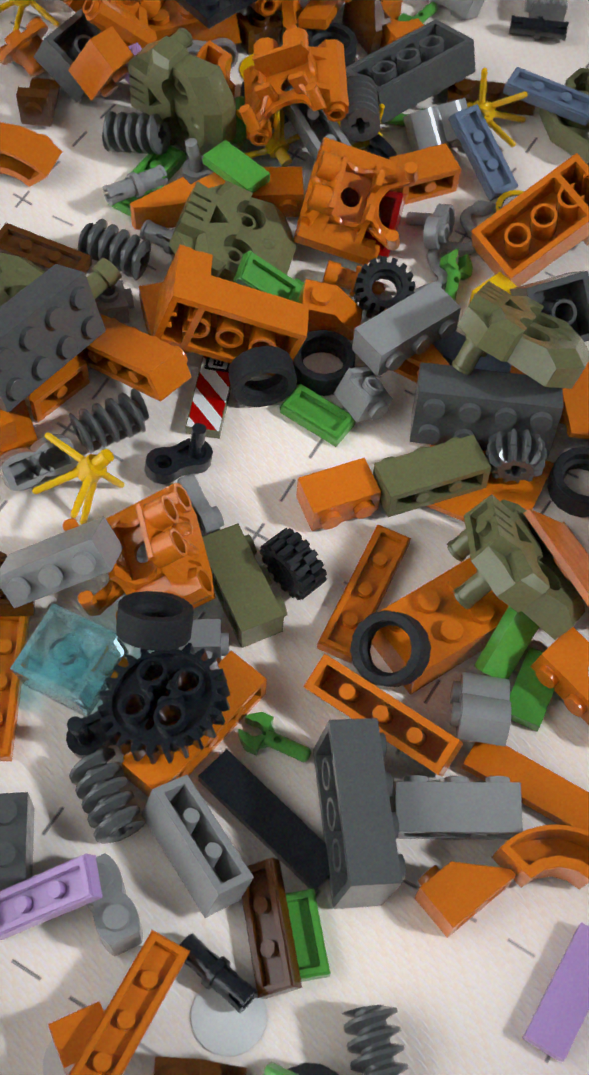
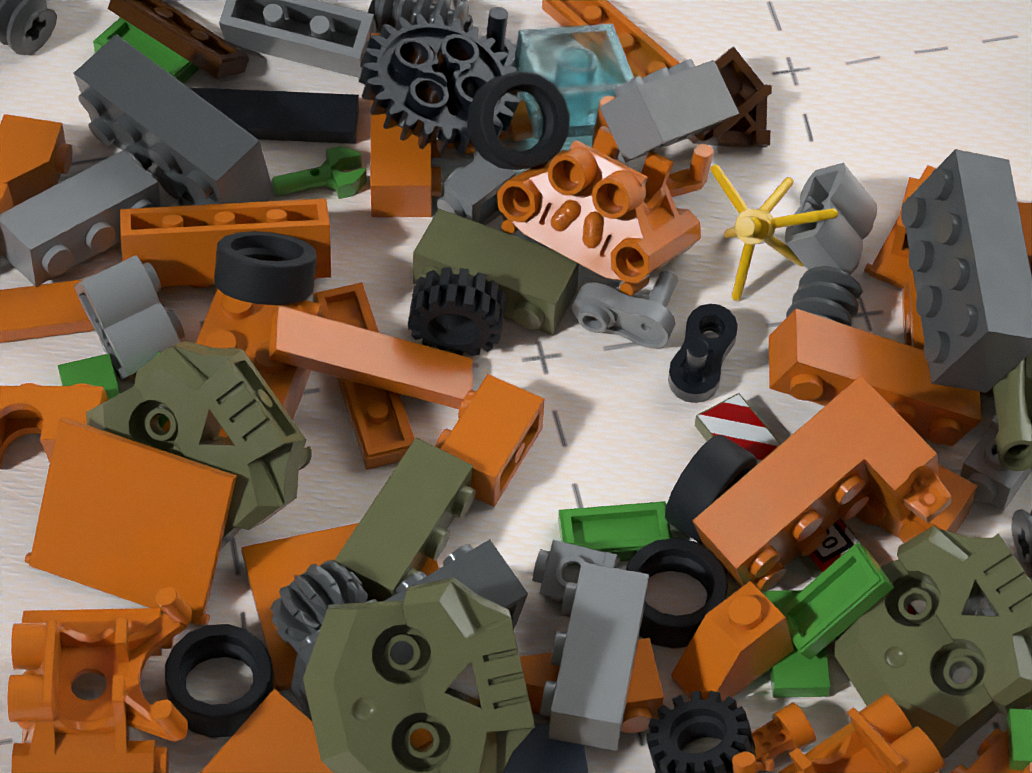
camera: 140 degrees right, 5 degrees down
(373, 570) = (369, 357): none -> orange tile

